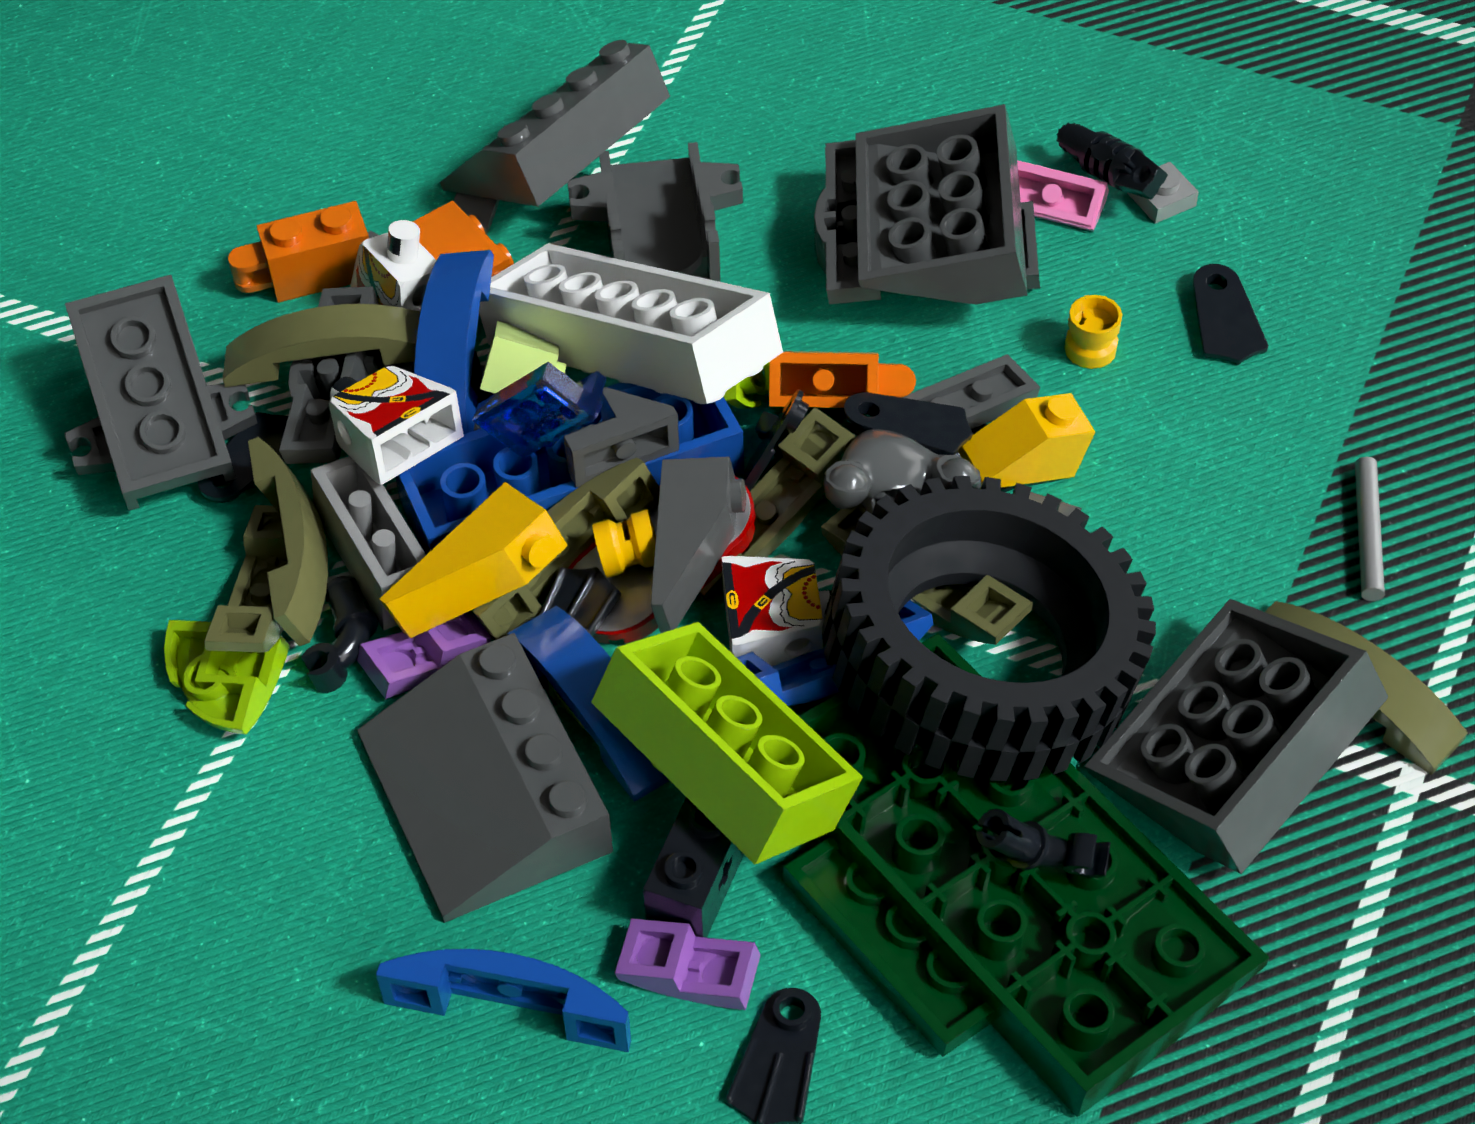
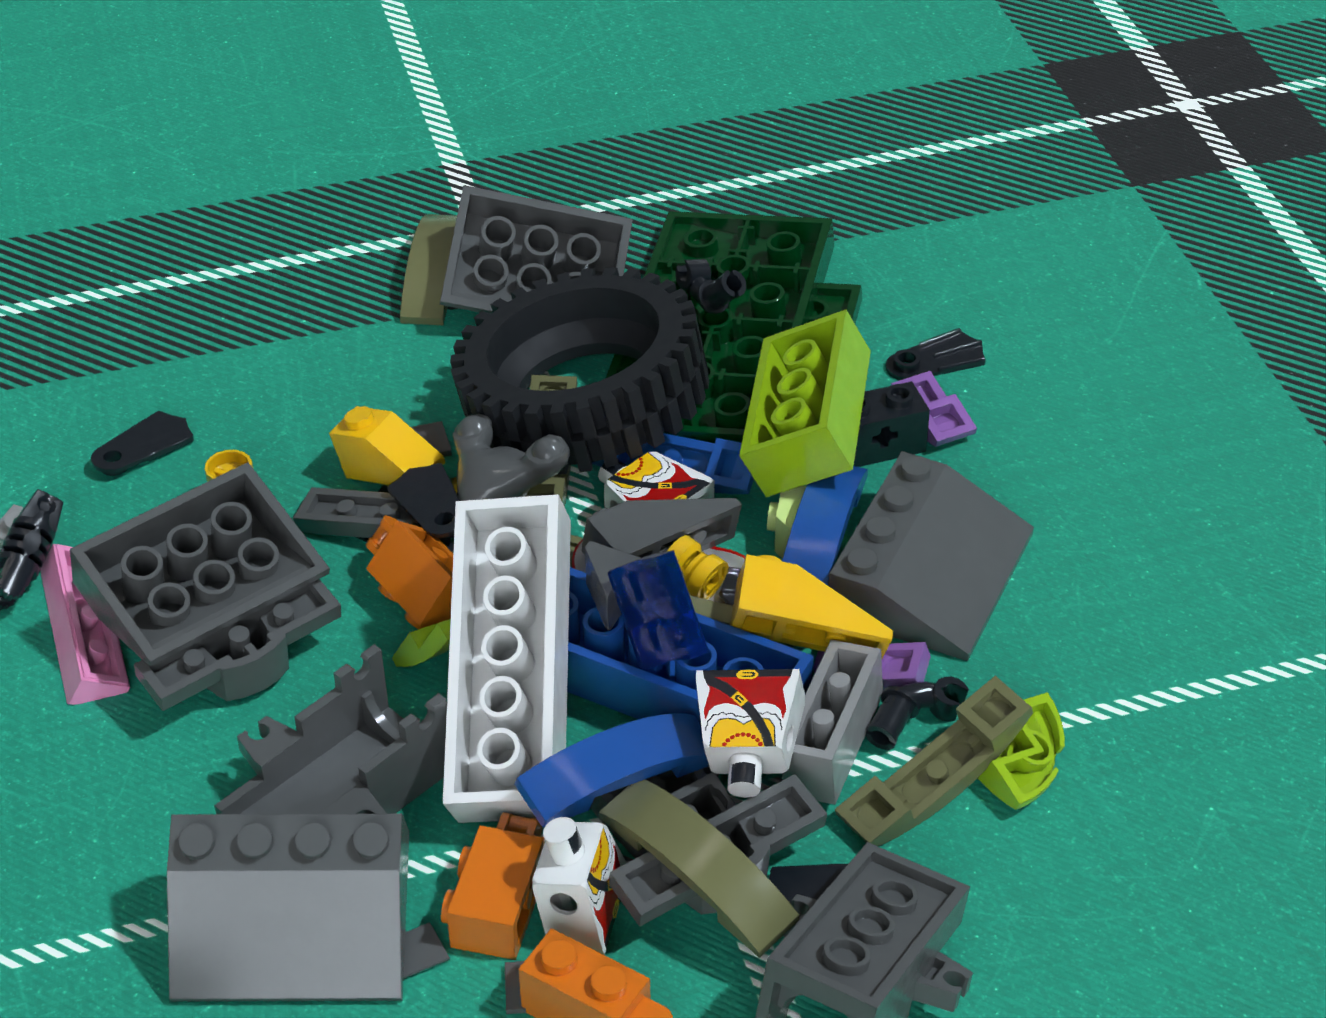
camera: 130 degrees left, 10 degrees down
(300, 585) = (917, 725): olive slope -> none
(430, 977) = (1073, 489): blue slope -> none
(514, 355) = (601, 699): yellowish green slope -> none
(1369, 529) = (295, 305): light grey bar -> none

